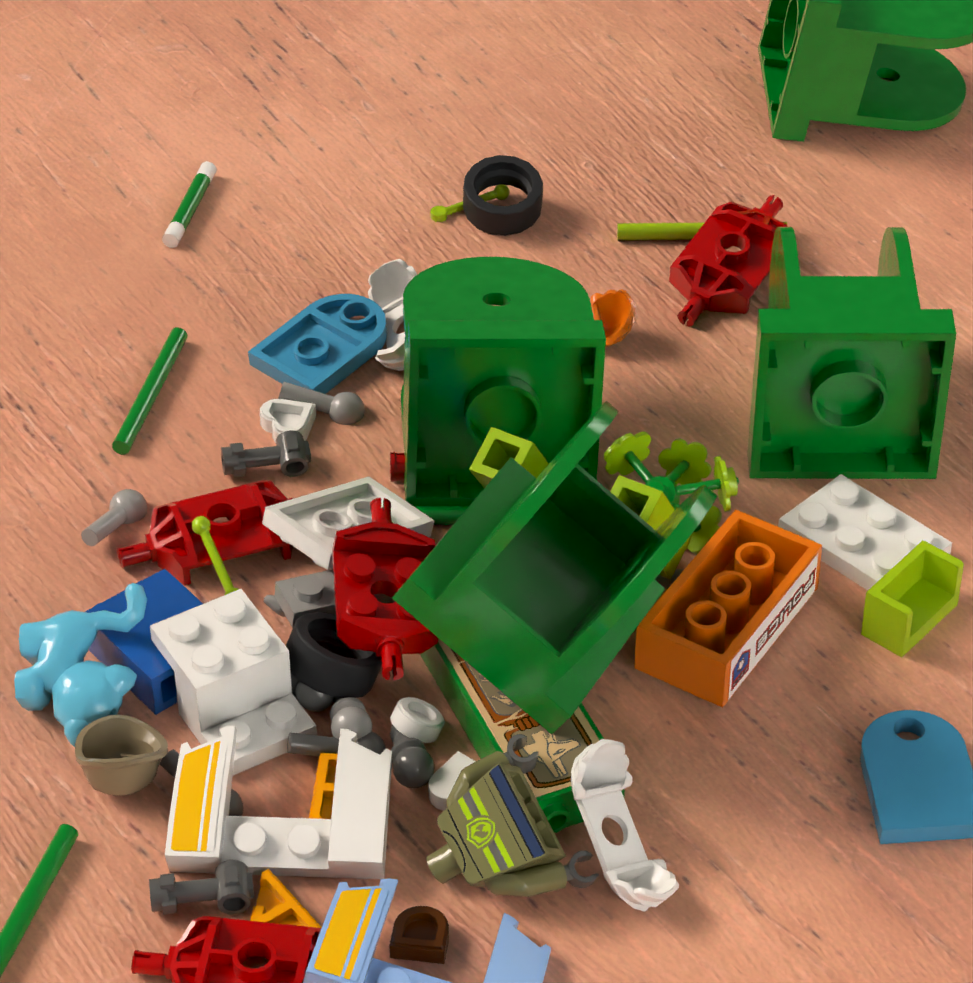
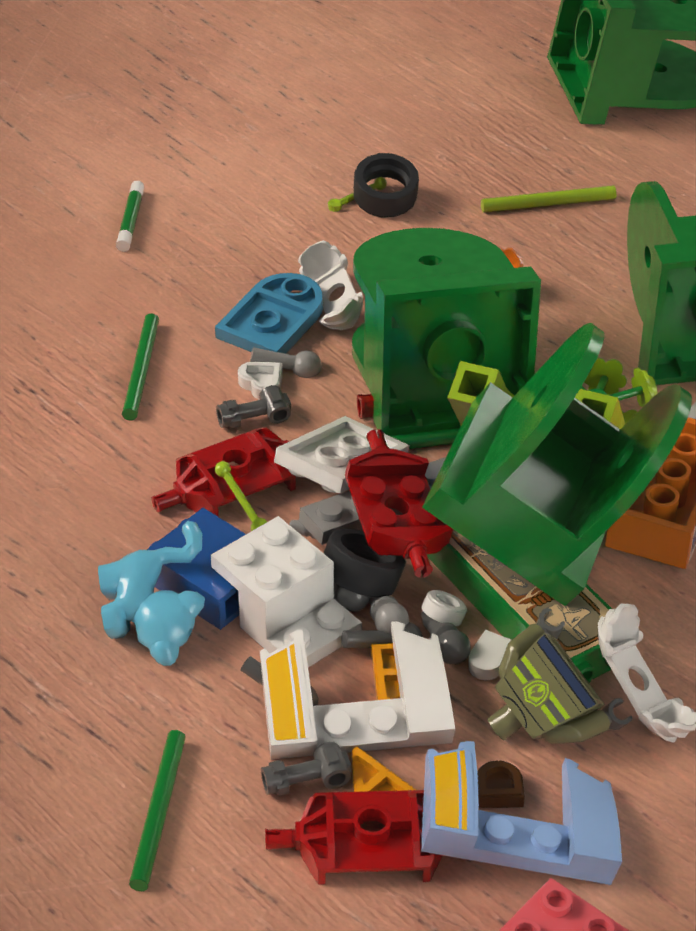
camera: 10 degrees left, 0 degrees up
(119, 754) = (207, 665): dark tan helmet -> none
(124, 508) = (146, 463): light grey bar -> none
(725, 279) = (575, 232): red plate -> none

